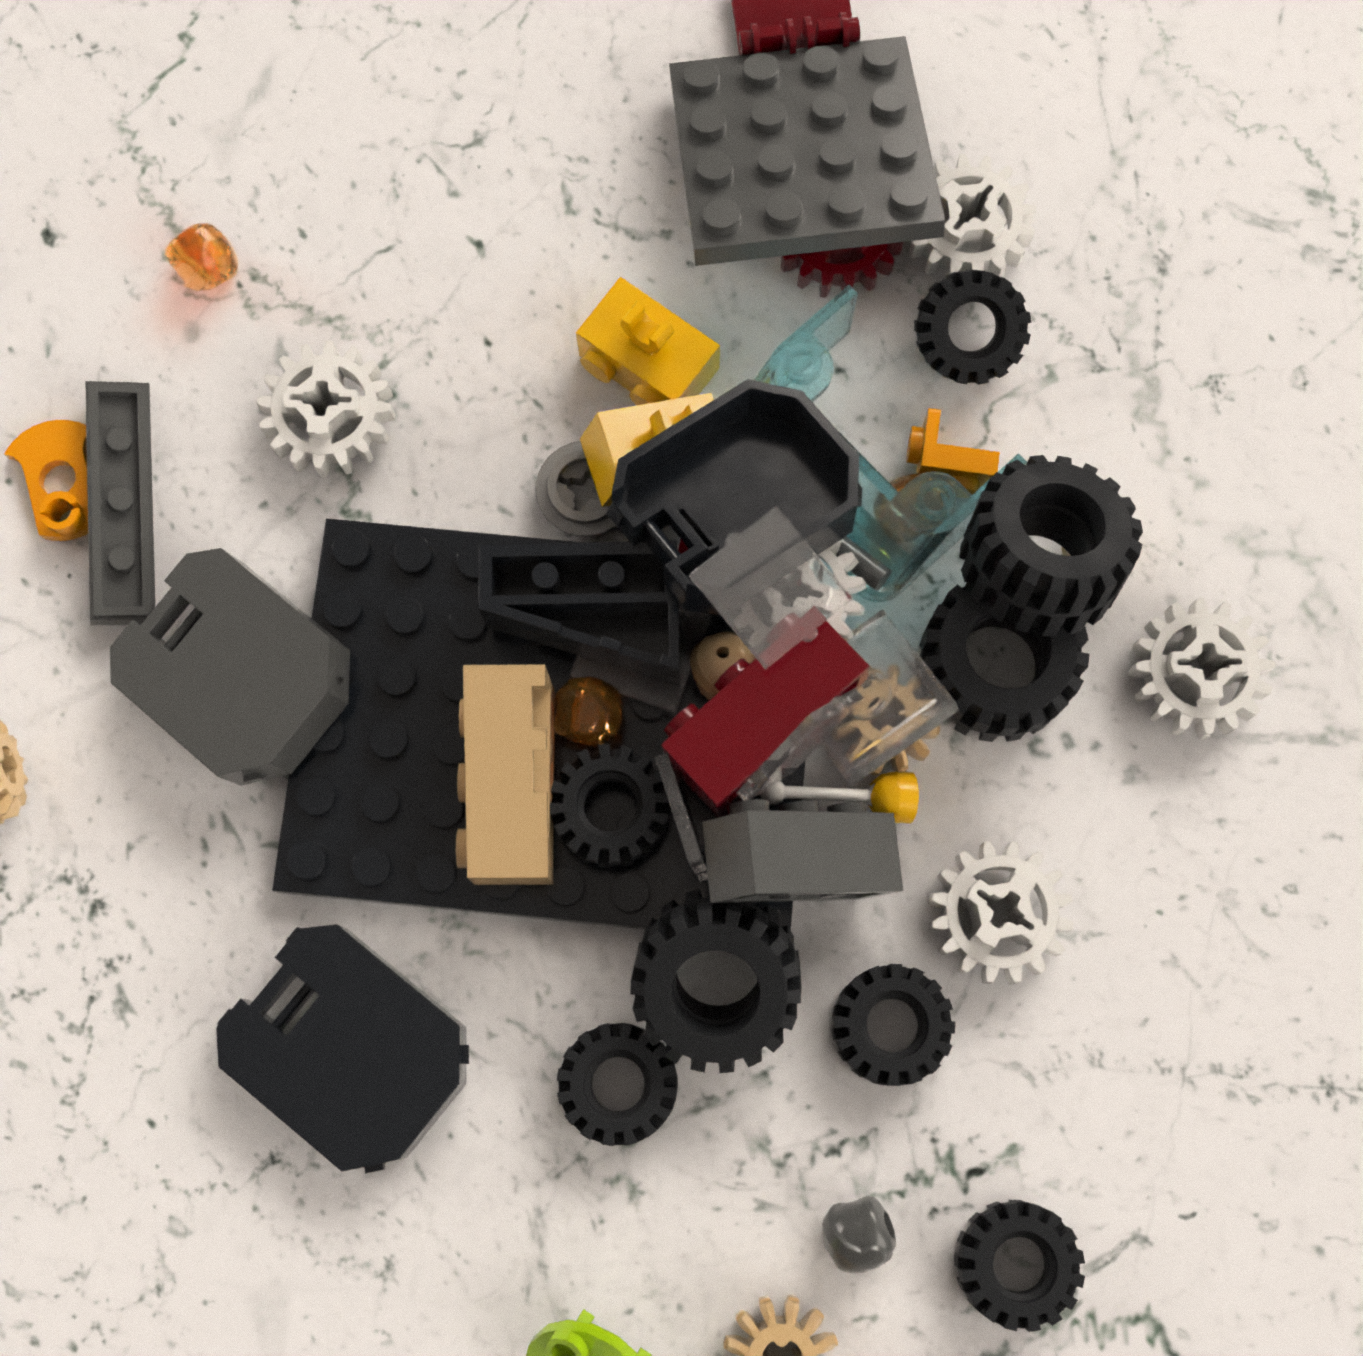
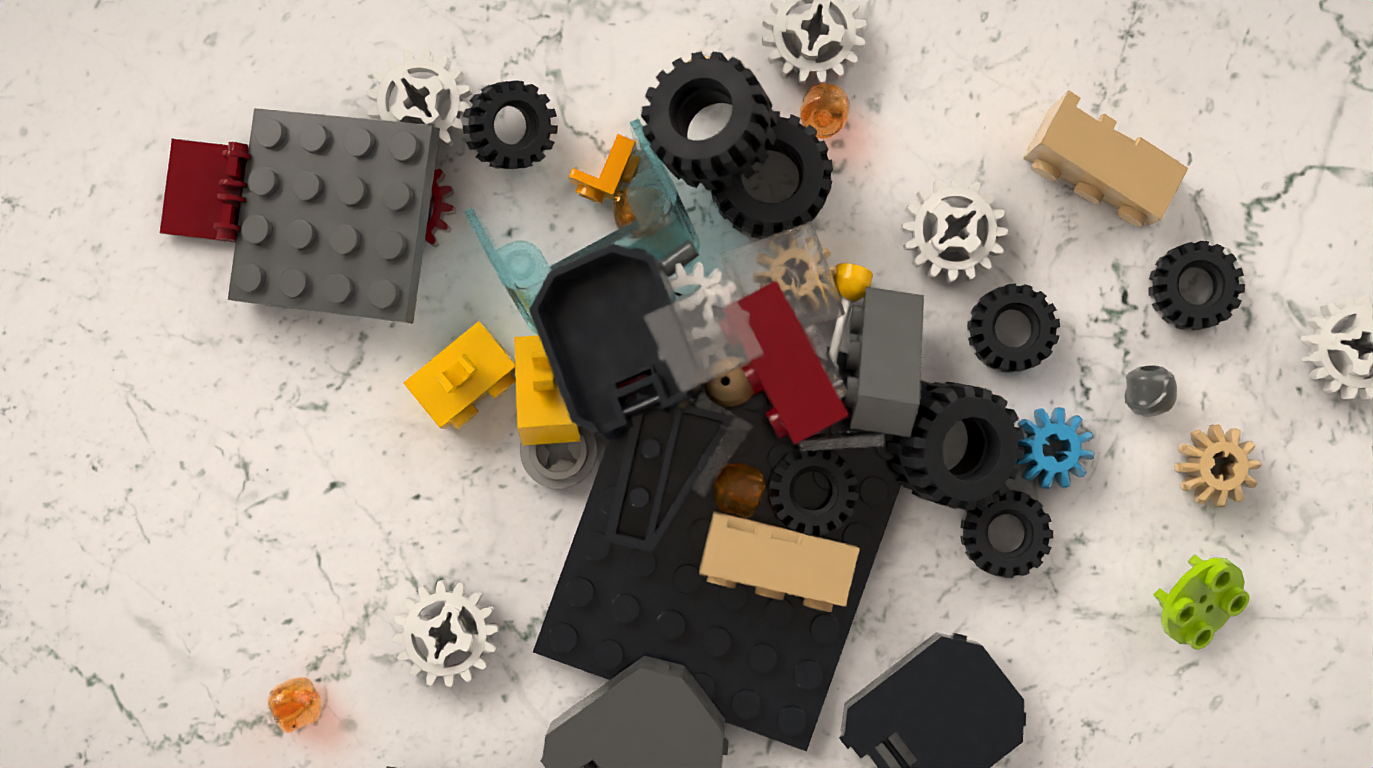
camera: 75 degrees left, 10 degrees up
(768, 1121) = (1071, 448): none -> dark azure gear
(1106, 707) = (825, 109): none -> clear orange piece
(1149, 1089) = (1104, 162): none -> tan wedge

